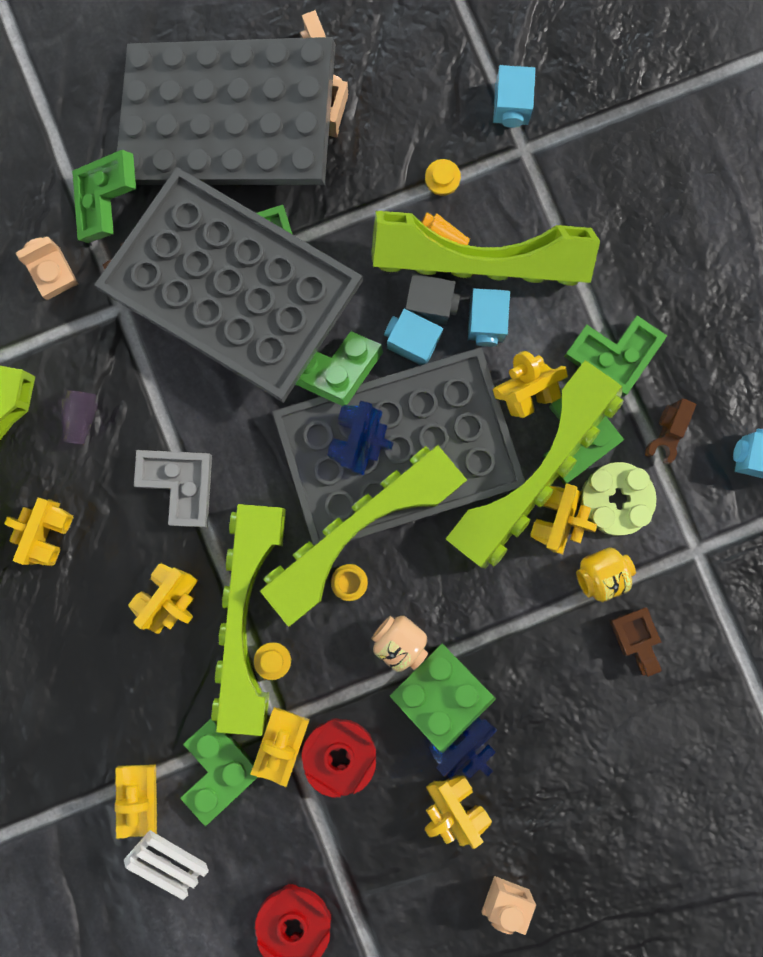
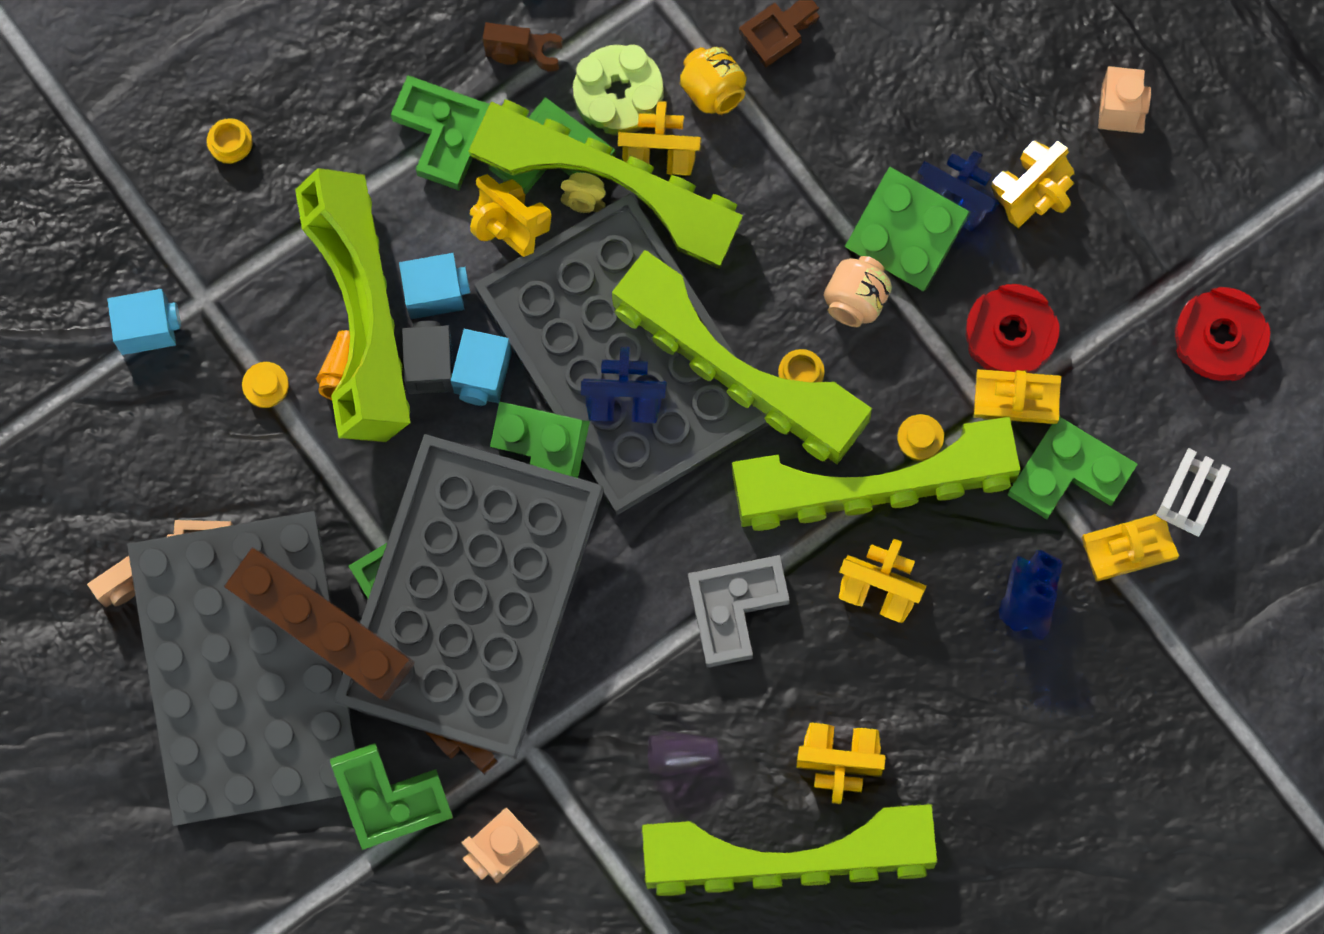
camera: 100 degrees left, 10 degrees down
(117, 711) = (1031, 593): none -> clear blue hips
(253, 129) = (319, 624): none -> reddish brown arch
(535, 449) = (583, 193): none -> light yellow plate
(646, 192) = (229, 140): none -> yellow plate

